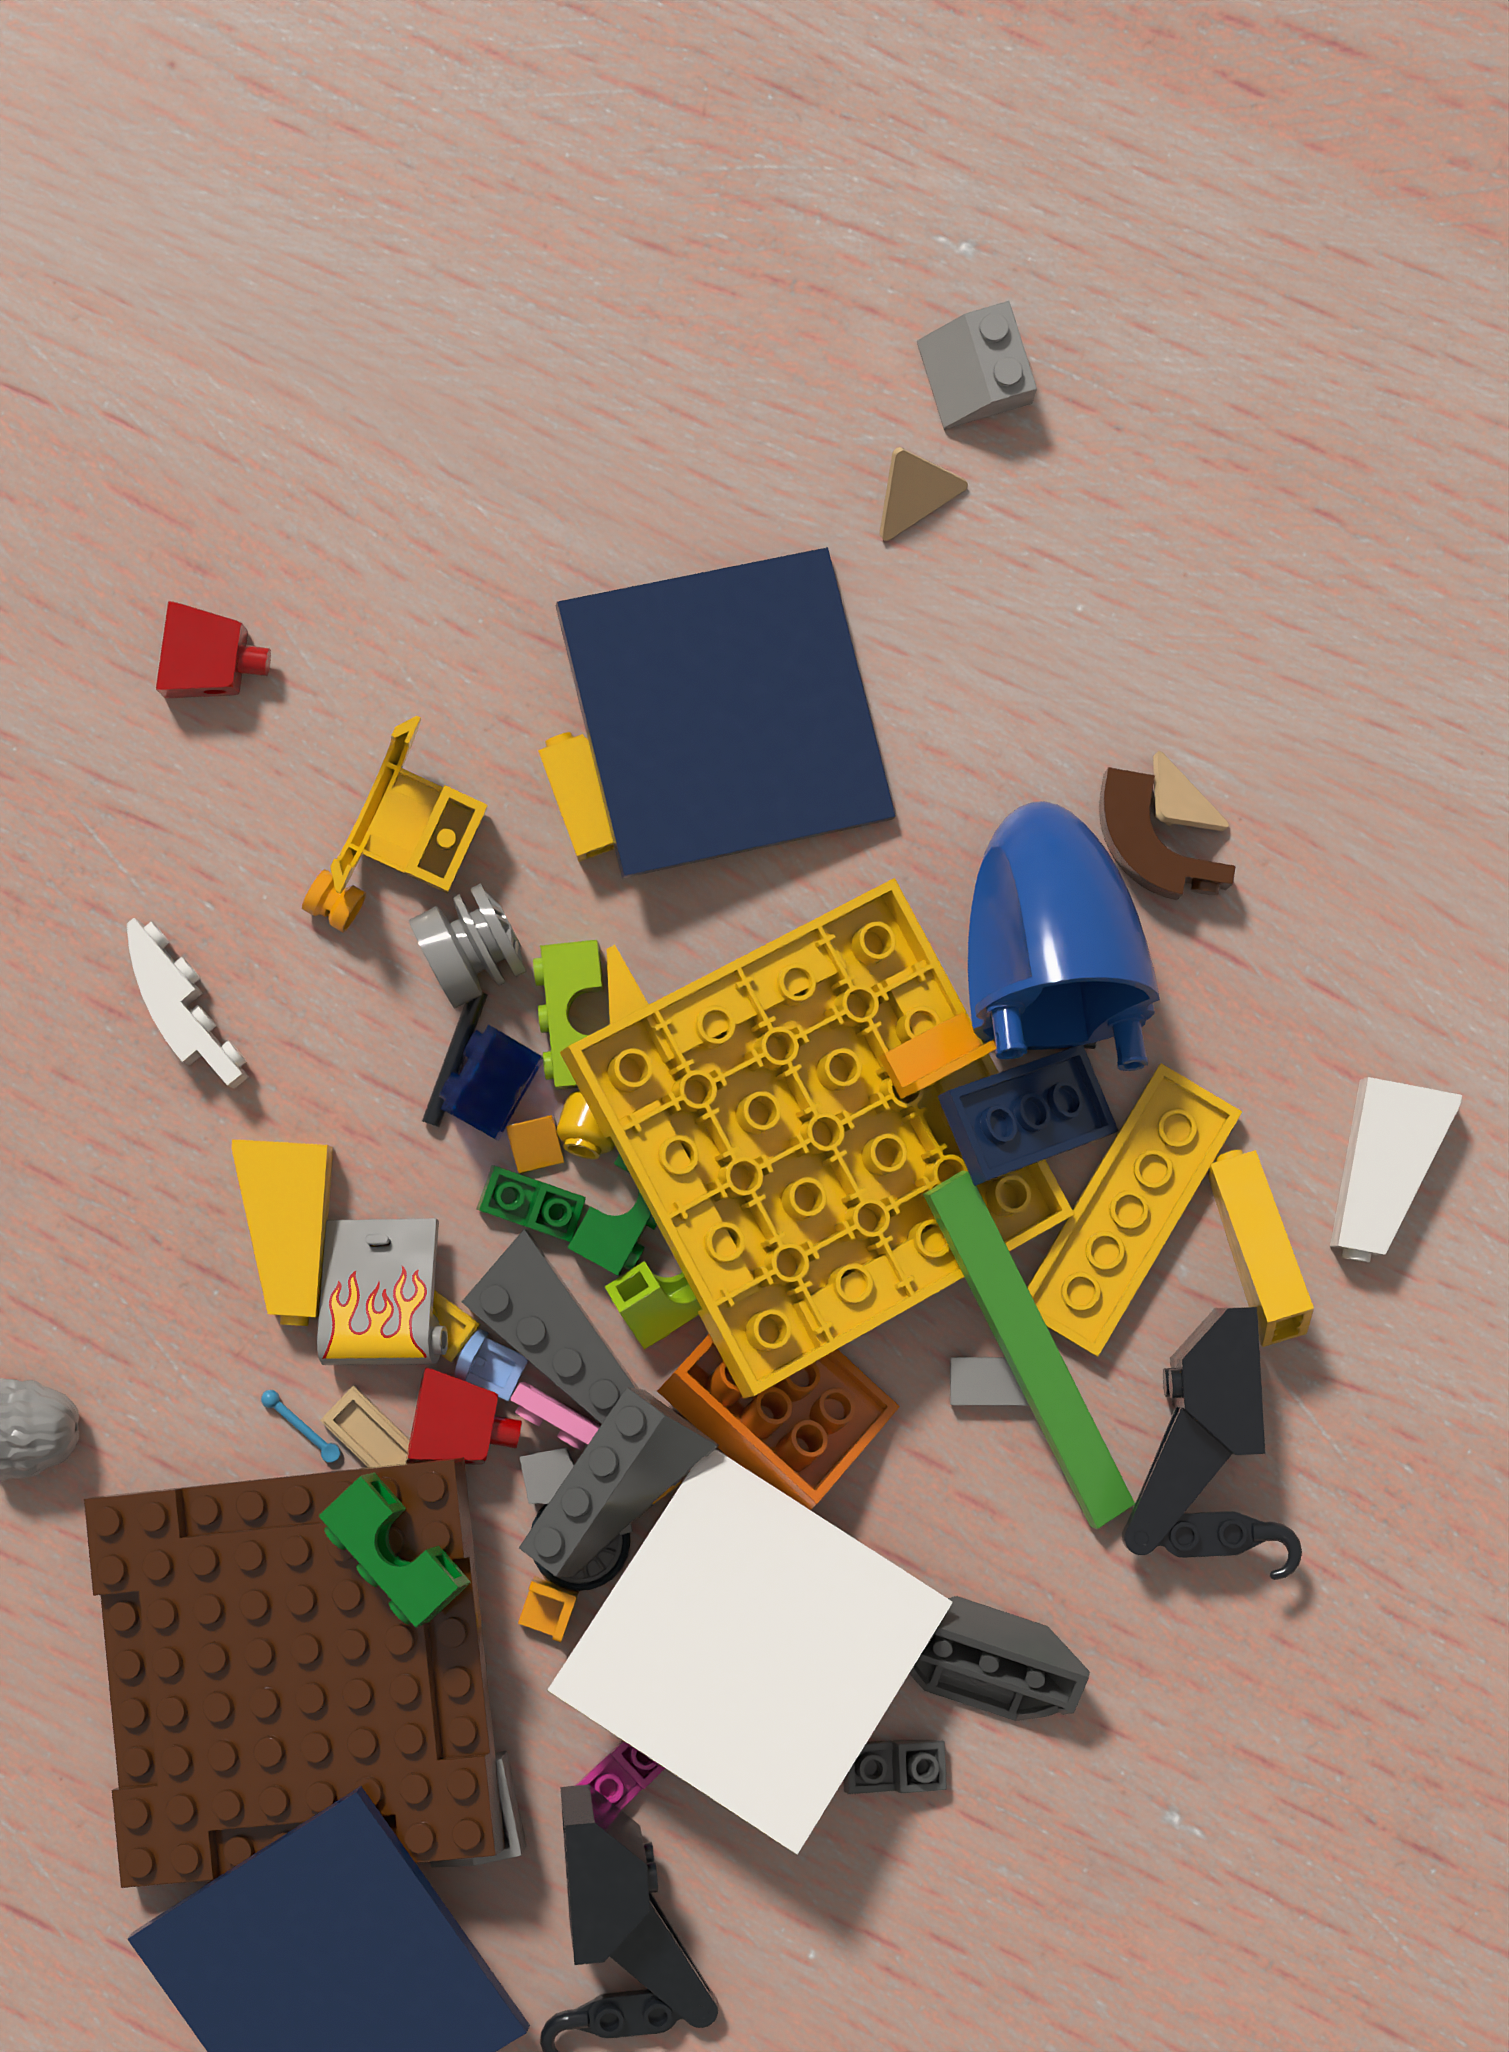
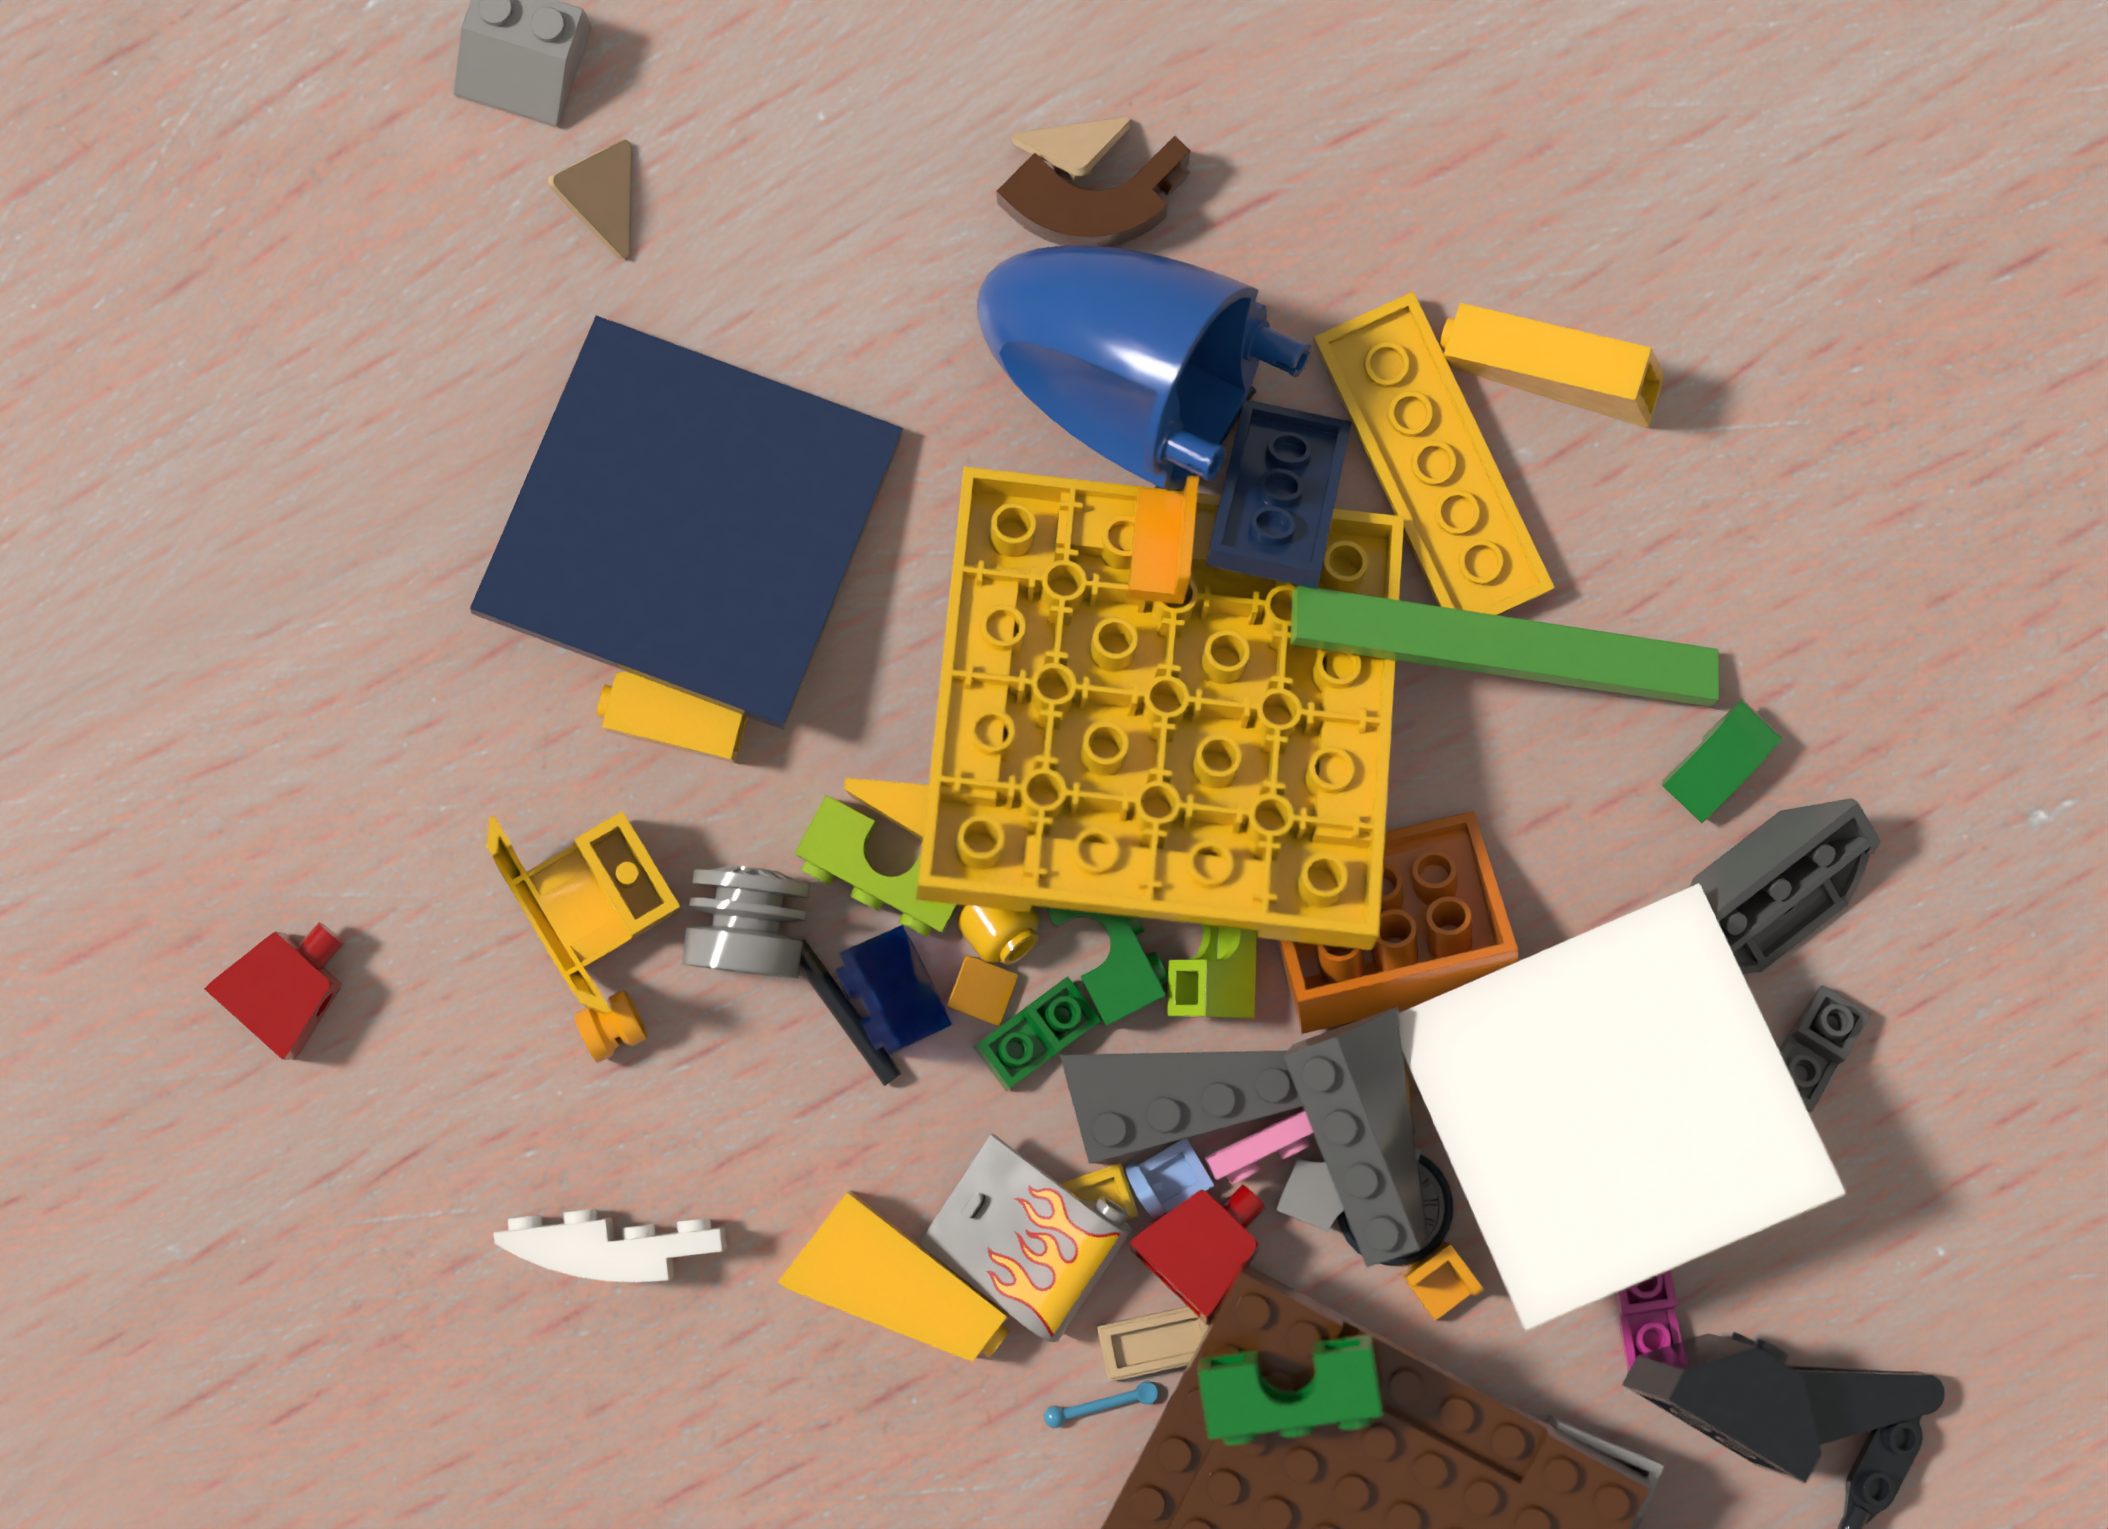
camera: 50 degrees left, 0 degrees up
(983, 1382) = (1505, 713): light grey tile -> none
(1055, 1560) = (1722, 761): none -> green slope
(1215, 1415) = (1687, 509): black slope -> none
(1387, 1157) = (1552, 187): white slope -> none

